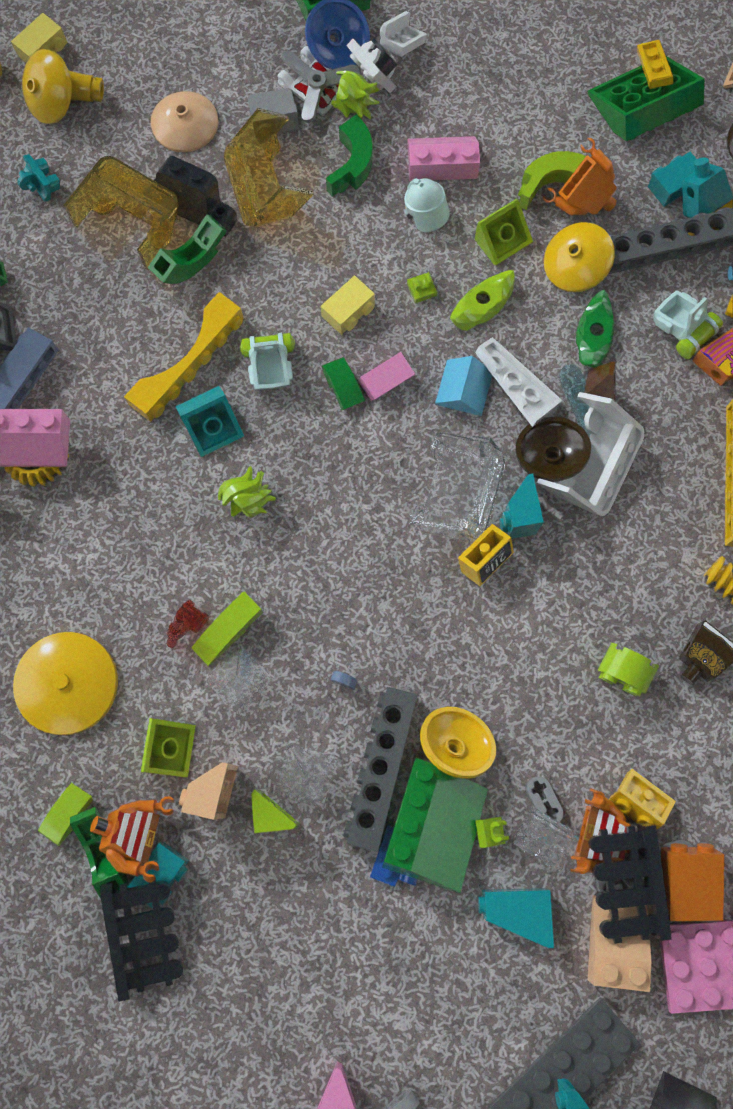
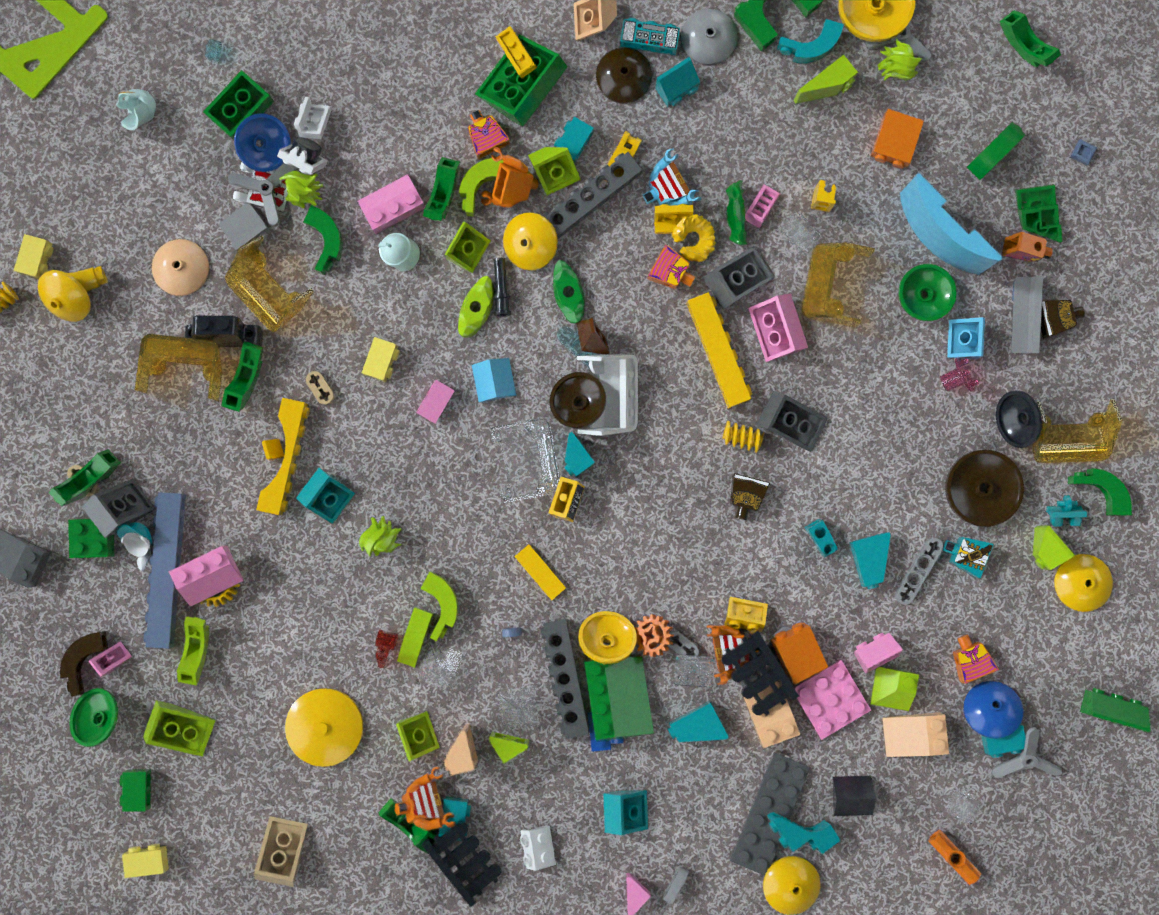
camera: 25 degrees left, 10 degrees up
(33, 178) = (95, 373): teal hips -> none
(57, 822) = (371, 805): lime slope -> none
(178, 344) = (272, 449): none -> yellow slope
(242, 968) = (537, 848): none -> white bracket
(260, 306) = (323, 385): none -> tan beam
(269, 360) = (344, 430): light aqua piece -> none
(286, 607) = (448, 602): none -> lime arch
(343, 382) = (406, 421): green slope -> none
(375, 978) = (625, 811): none -> teal slope
(412, 626) = (540, 572): none -> yellow tile
(422, 287) = (426, 317): lime tile -> none
(491, 832) = (656, 684): lime tile -> none
(506, 777) = (659, 630): none -> orange gear
(508, 163) = (443, 189): none -> green arch
(518, 301) = (501, 297): none -> black pin
(520, 384) = (534, 361): white wing -> none
(579, 126) = (486, 134): none -> torso
(627, 669) = (697, 533): lime brick -> none
(642, 196) = (554, 168): none -> lime slope
(687, 322) = (630, 255): light aqua piece -> none
(705, 189) = (598, 144): teal torso -> none

